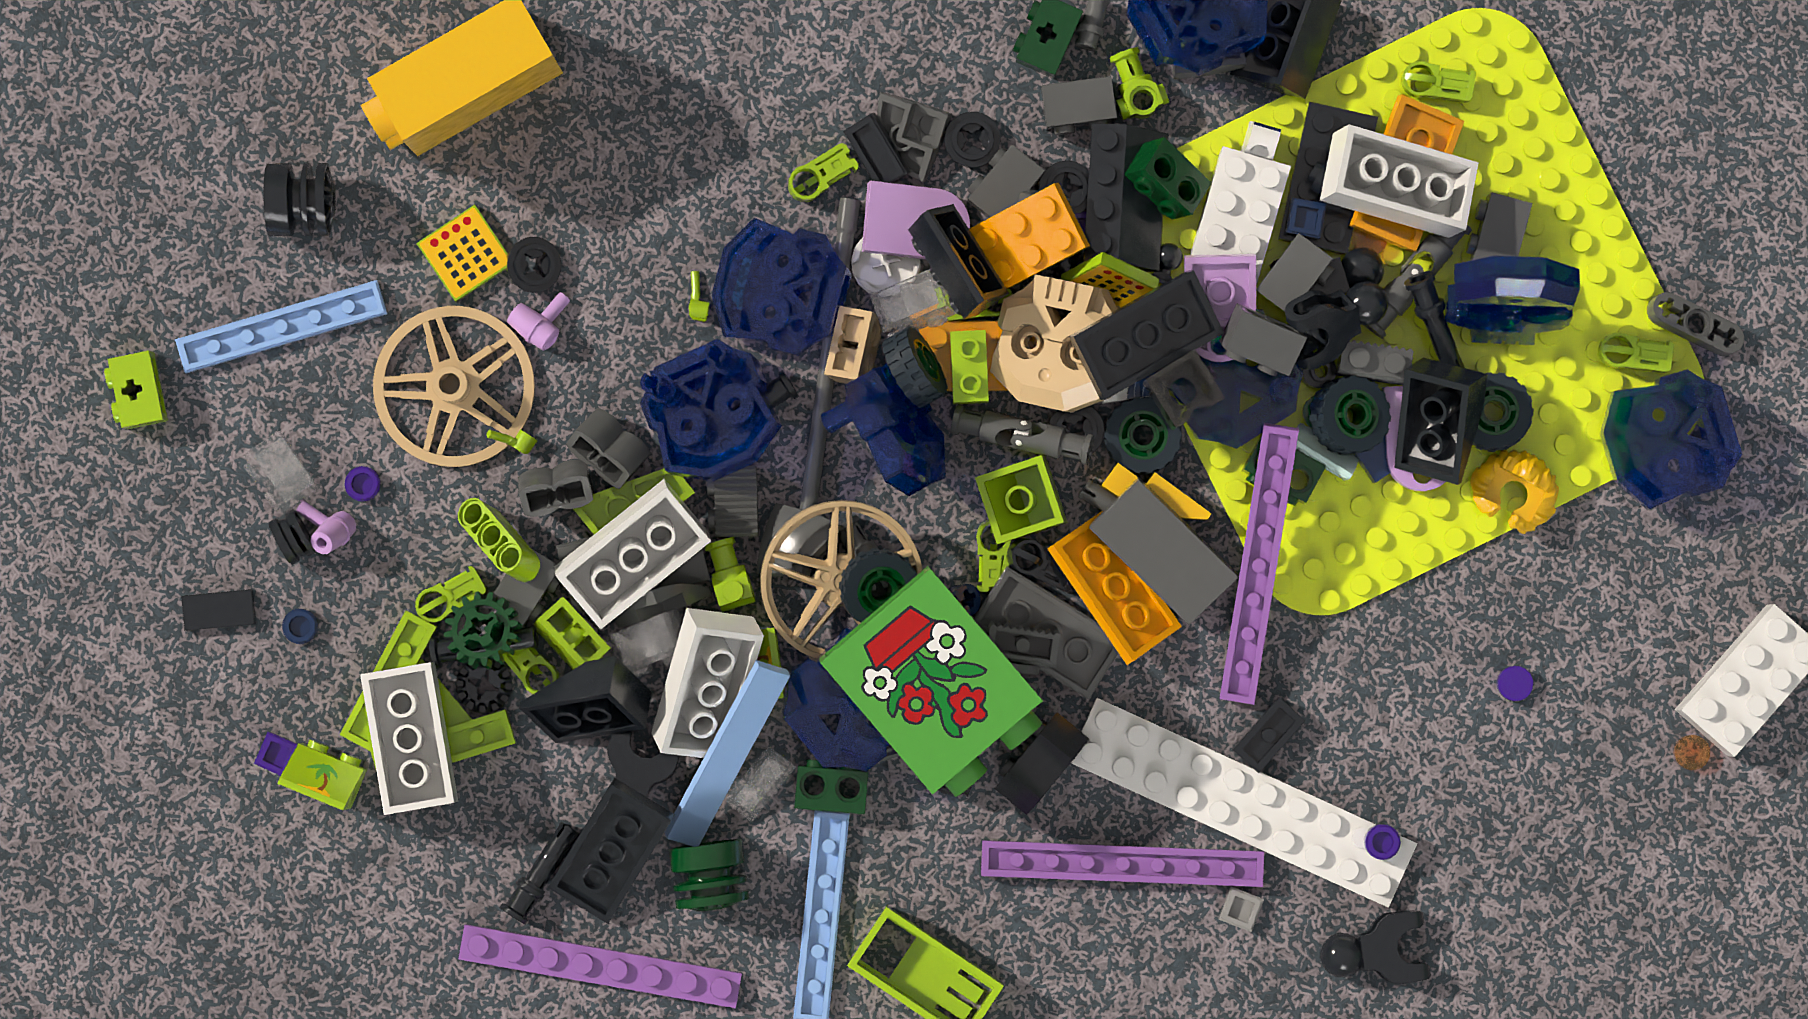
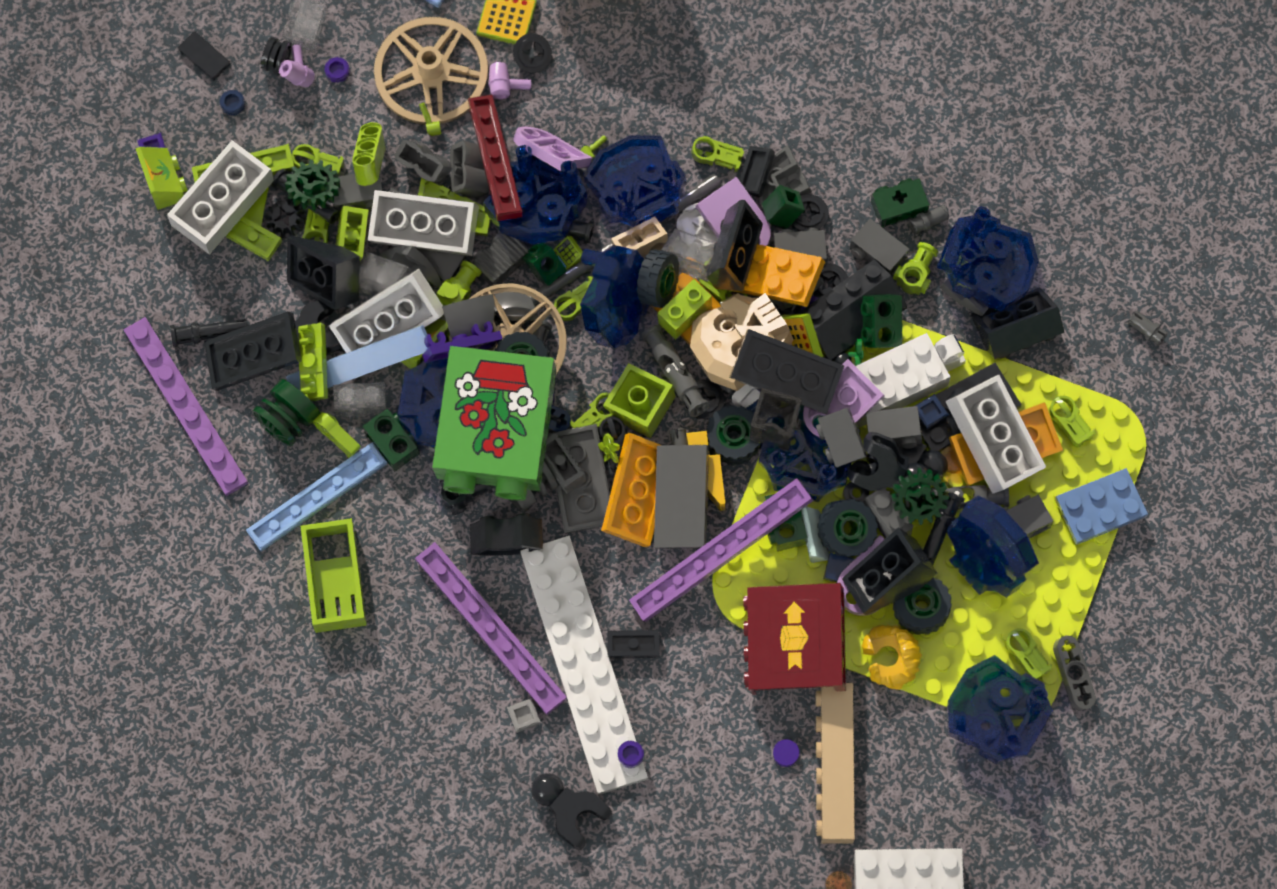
camera: 50 degrees right, 15 degrees down
(624, 413) = (494, 158): none -> dark red tile
(663, 345) = (550, 148): none -> lavender tile
(677, 795) = (314, 363): none -> lime plate
(776, 840) = (333, 431): none -> lime piece
(785, 464) = (550, 270): none -> dark green brick
(789, 605) = (466, 313): none -> dark grey brick
(794, 428) = (569, 252): none -> lime tile
(810, 638) = (478, 340): none -> dark purple plate
(851, 455) = (574, 297): none -> lime piece
(946, 162) = (783, 206): none -> dark green brick
(1048, 578) = (609, 448): none -> lime plant
(1178, 234) = (859, 354): none -> green plant
(1396, 319) = (913, 487): none -> dark green gear
(1418, 574) = (795, 637): none -> dark red panel
(1553, 136) = (1101, 506): none -> medium blue plate
(1573, 644) = (836, 765): none -> tan brick

